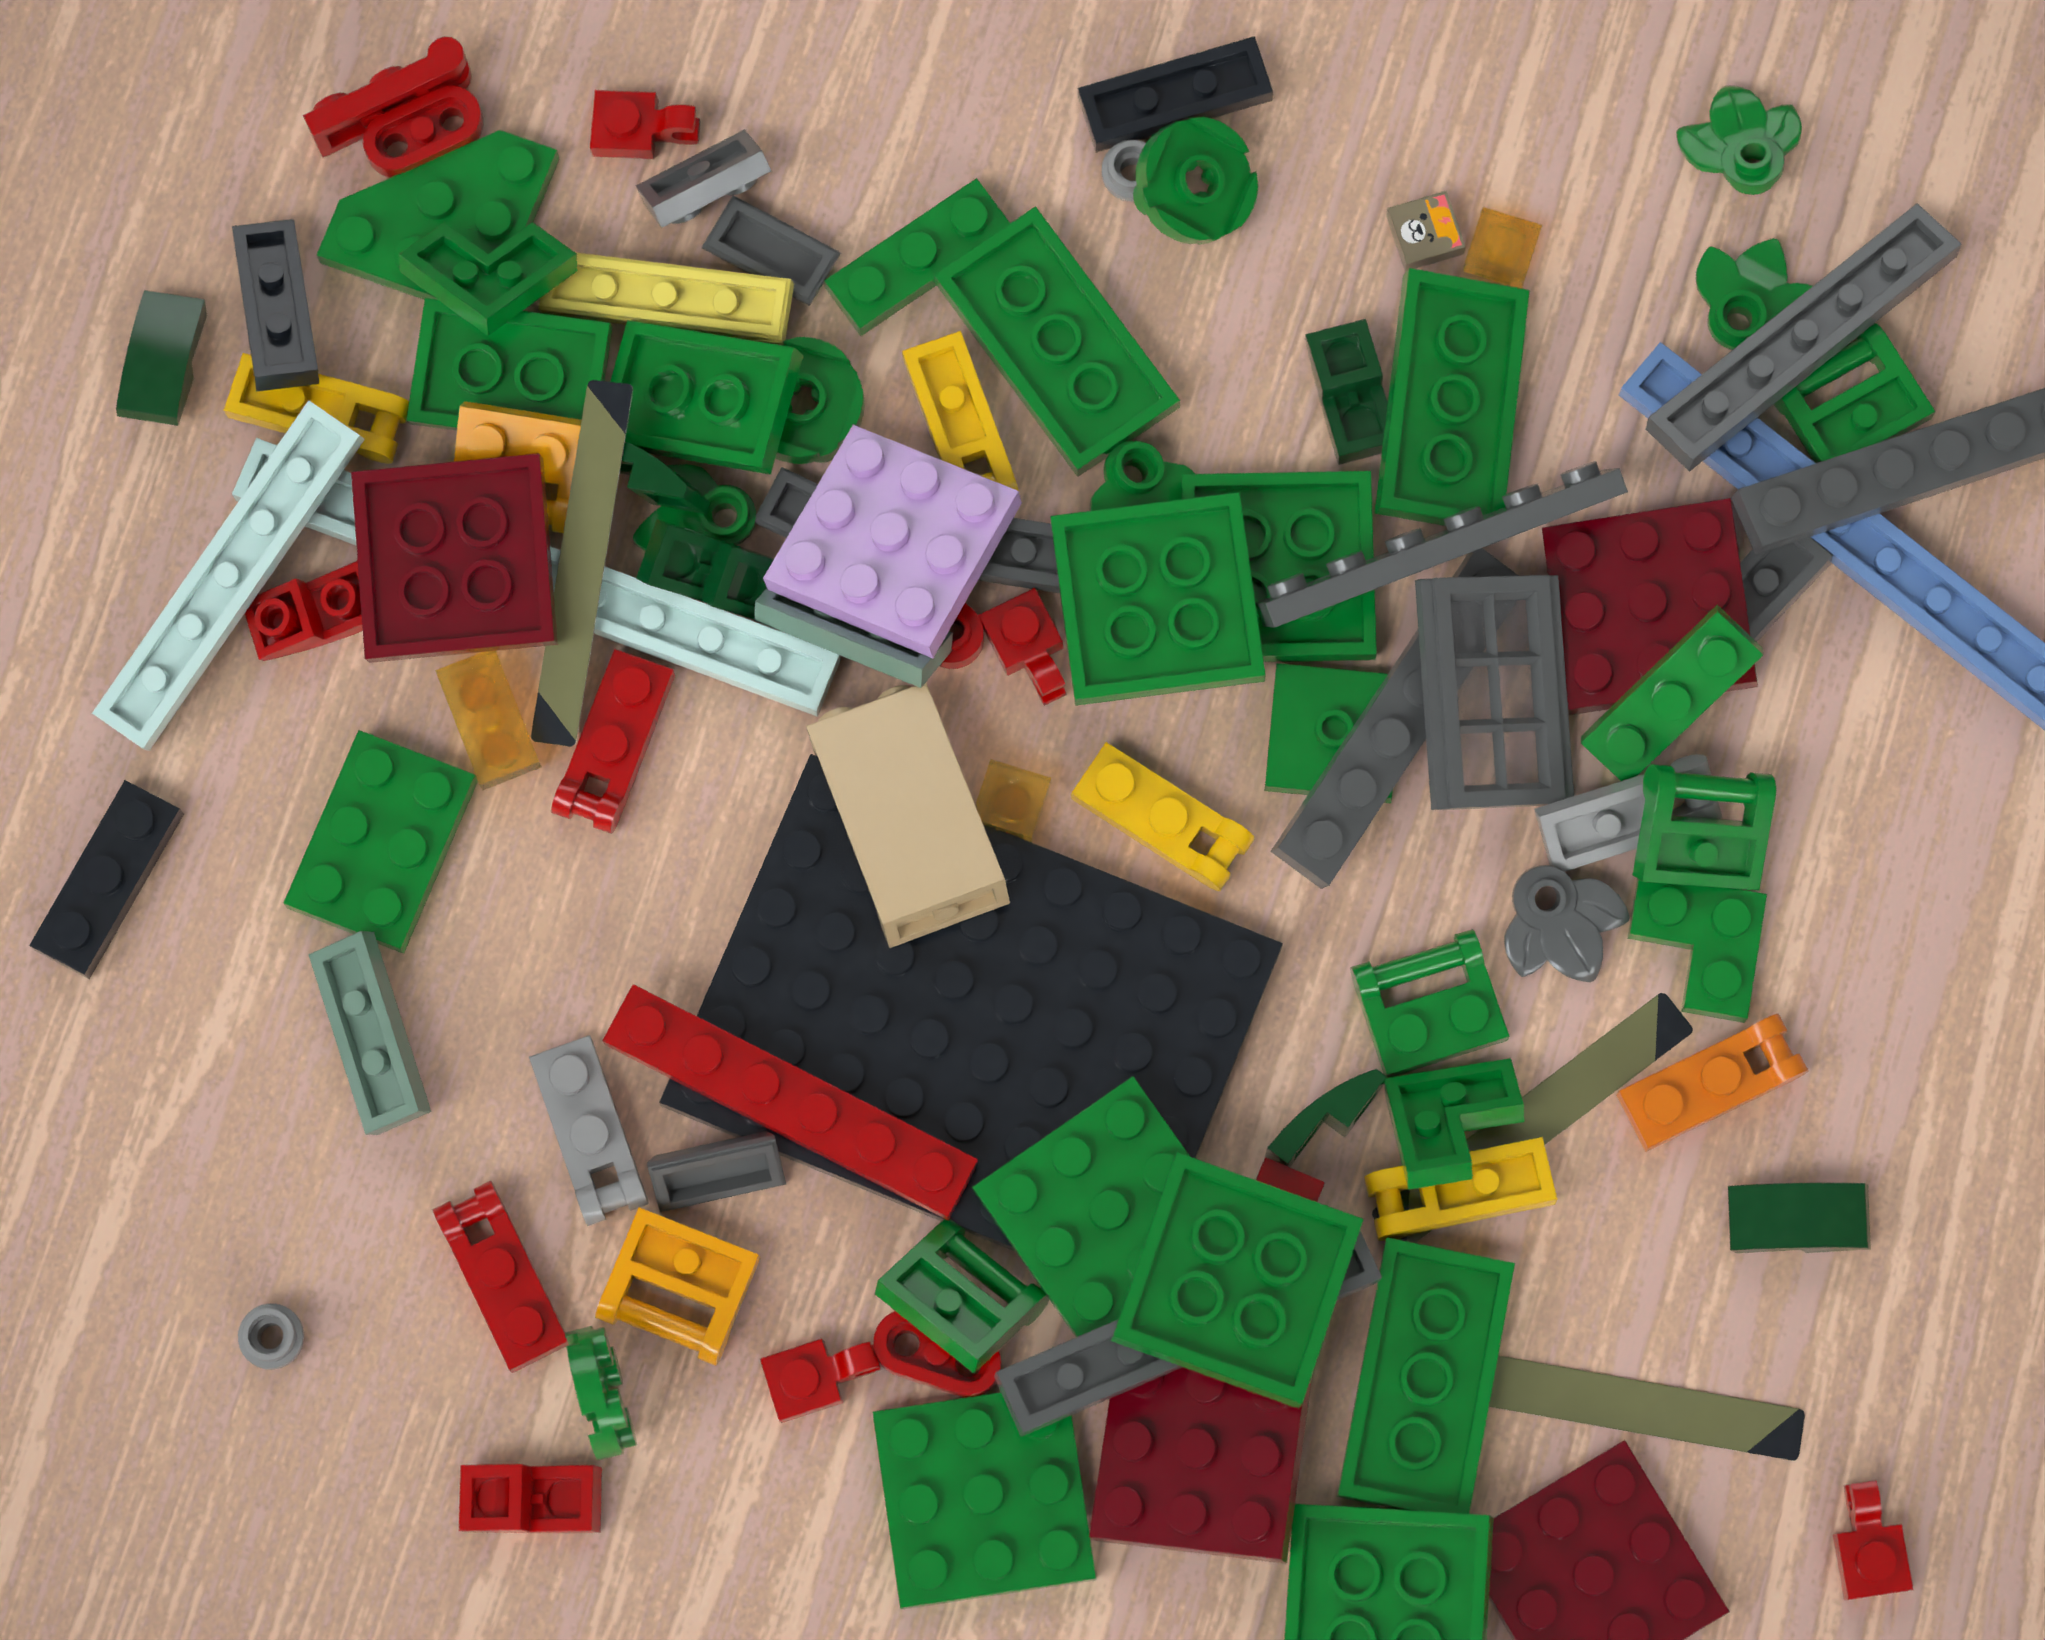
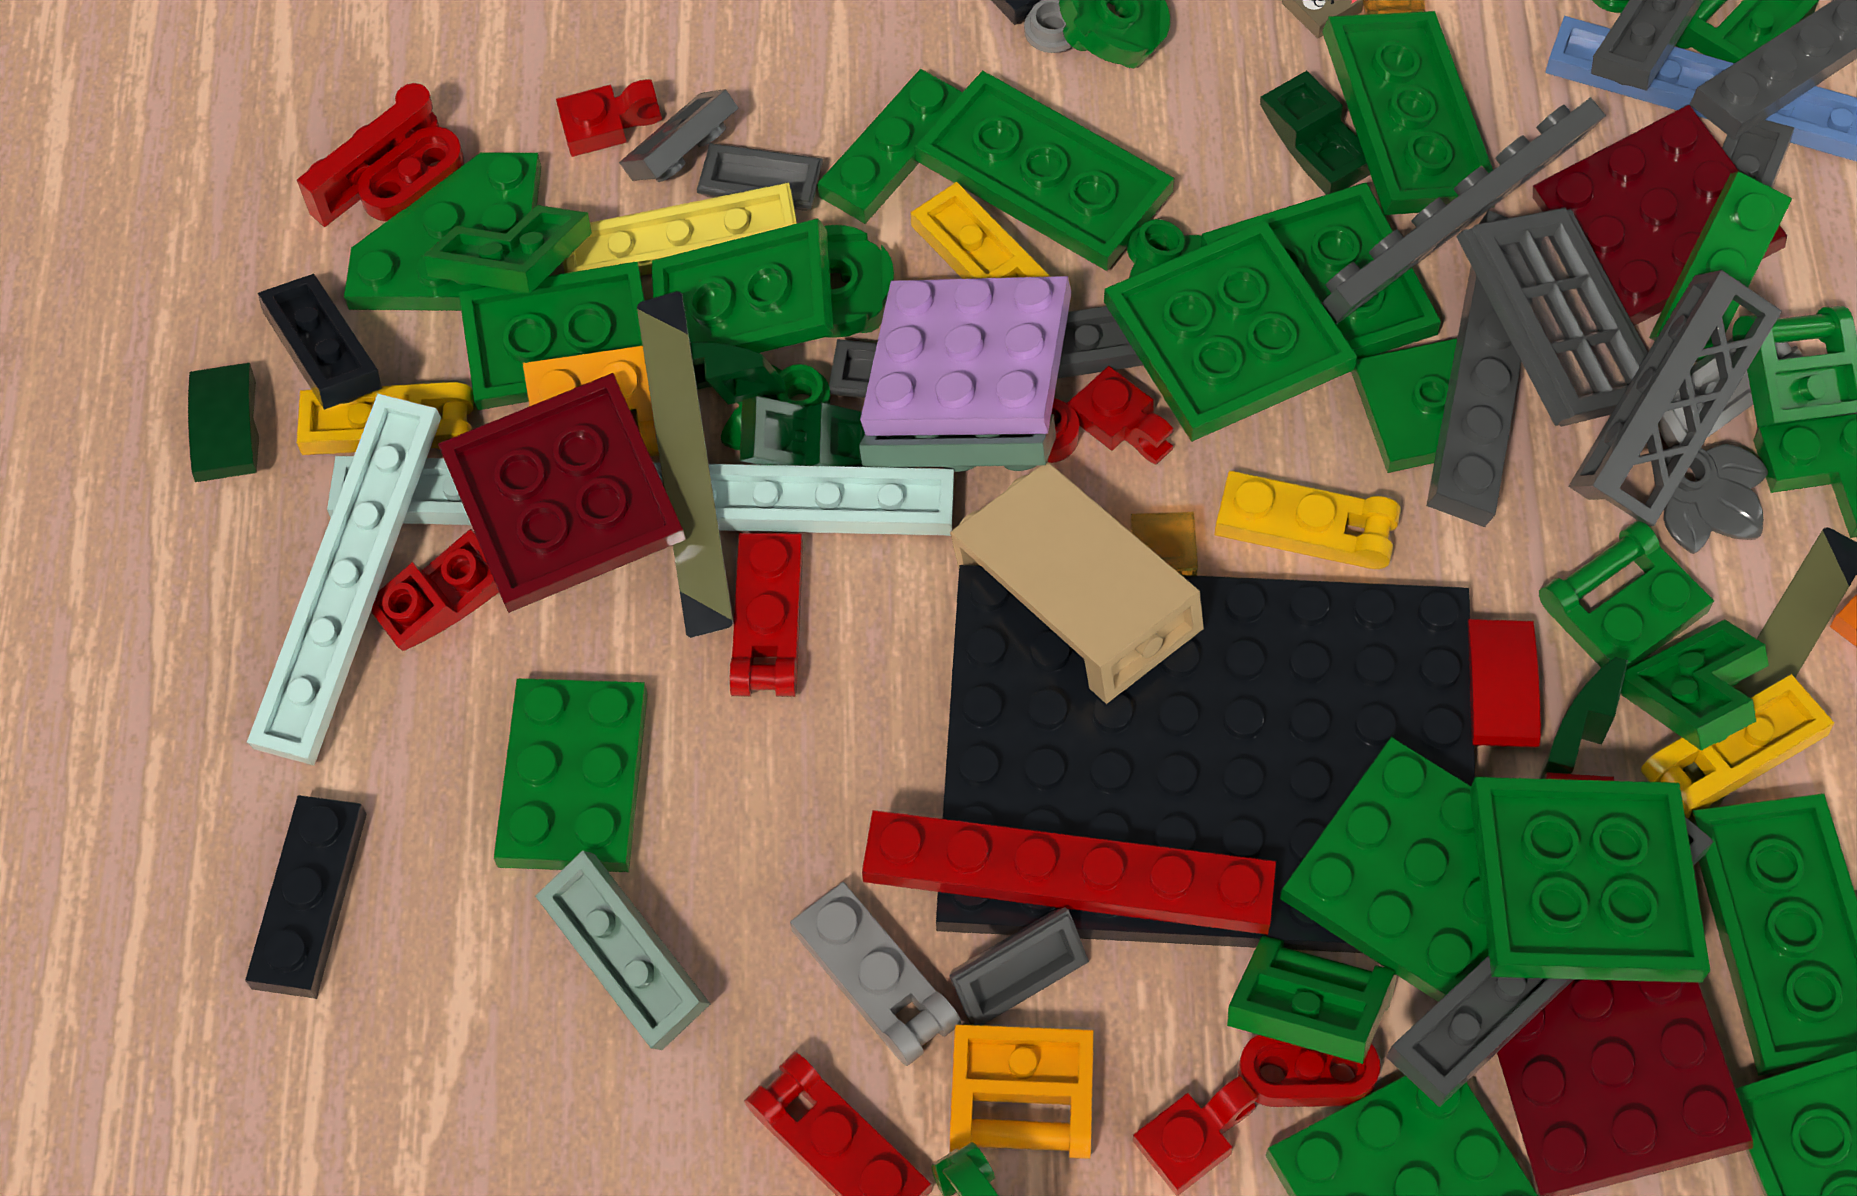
camera: 20 degrees left, 15 degrees down
(488, 719) = (640, 630): clear yellow plate -> none
(1270, 1050) = (1504, 683): none -> red slope
(1539, 807) = (1655, 386): none -> dark grey fence

